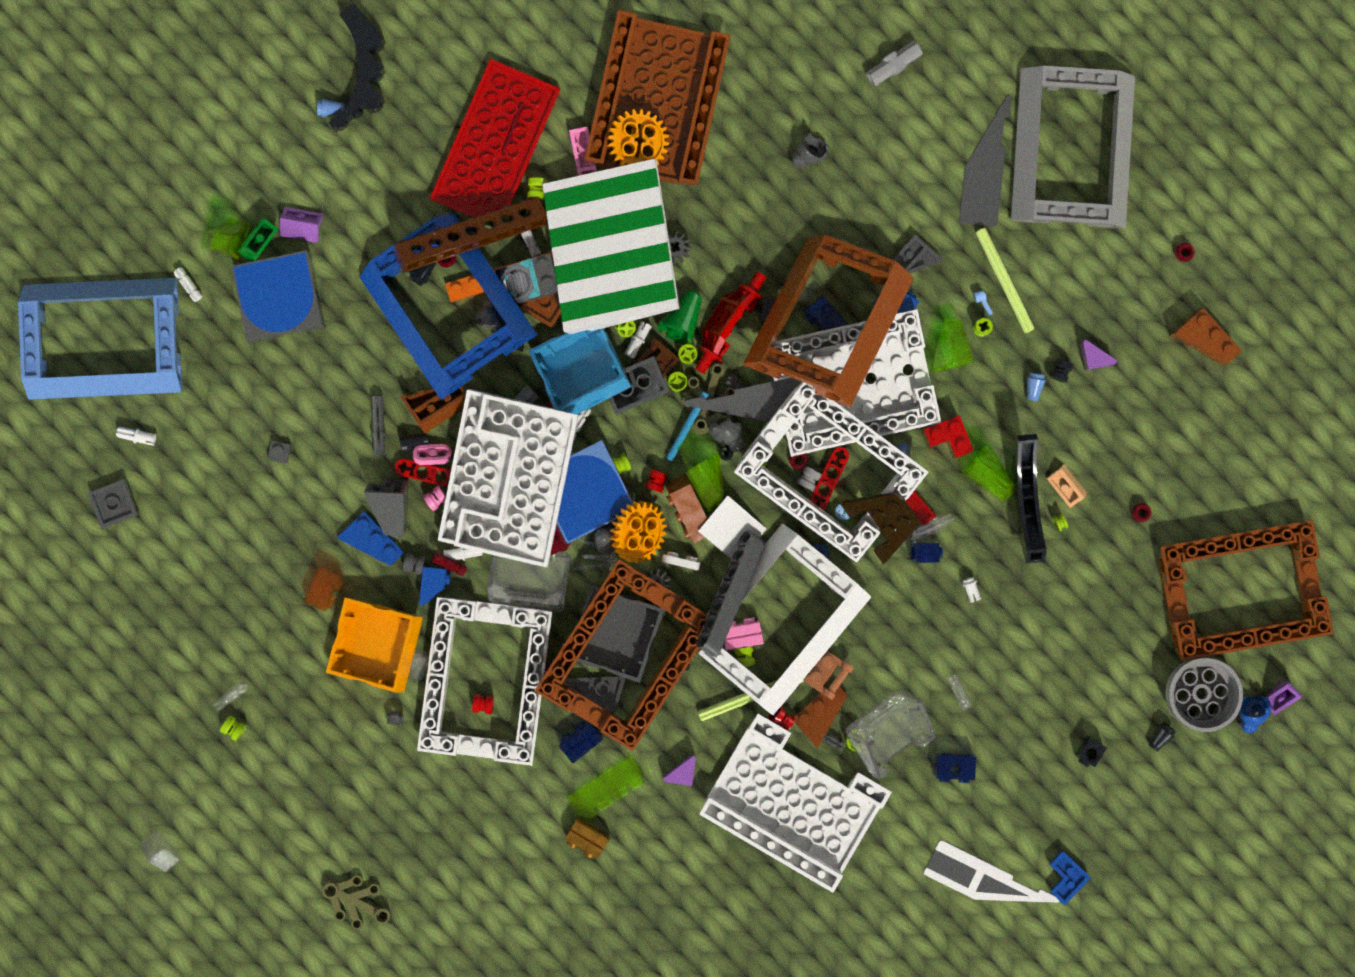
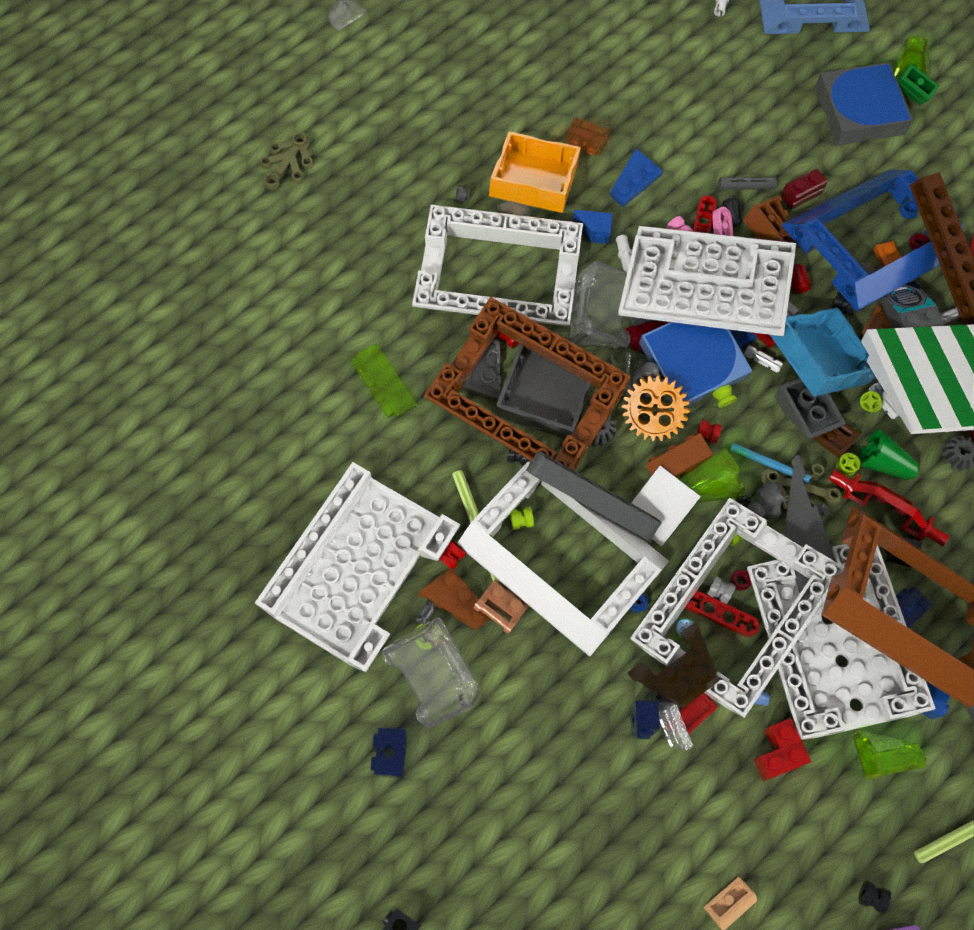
camera: 95 degrees right, 20 degrees down
(188, 284) = (863, 38): white axle -> none
(229, 696) = (486, 66): clear axle -> none
(233, 728) = (456, 65): lime wheel -> none
(279, 452) = (714, 106): dark grey plate -> none
(300, 224) = (932, 122): medium lavender panel -> none
(386, 368) = (803, 188): none -> dark red brick
(389, 505) = (670, 189): dark grey slope -> none
(414, 564) = (614, 206): dark grey wheel -> none
(422, 274) = (901, 221): black cone -> none
(449, 564) = (615, 238): dark red axle -> none
(482, 703) = (475, 267): red wheel -> none
(490, 382) = (800, 279): none -> red brick
(580, 741) = (432, 352): clear blue brick -> none
(587, 838) = (333, 360): pearl gold brick -> none
(637, 340) = (857, 416): white axle -> none
(675, 380) = (818, 449): lime wheel -> none
(682, 773) = (397, 454): medium lavender slope -> none
(689, 562) = (623, 463): white plate -> none
(744, 634) = (545, 515): bright pink brick -> none
(959, 691) = (478, 761): clear axle -> none
(971, 588) = (600, 778): white pin -> none
(978, 878) = (256, 783): white sticker -> none
(981, 296) = (952, 794): light blue hand -> none
(988, 325) = (911, 800): lime bush -> none
(989, 474) = (740, 799): clear neon green slope -> none
(1026, 498) = (720, 846): black arch -> none
(1035, 385) = (852, 862): medium blue cone -> none
(1059, 522) = (686, 891): lime bush -> none
(1072, 877) = (247, 900): blue plate -> none

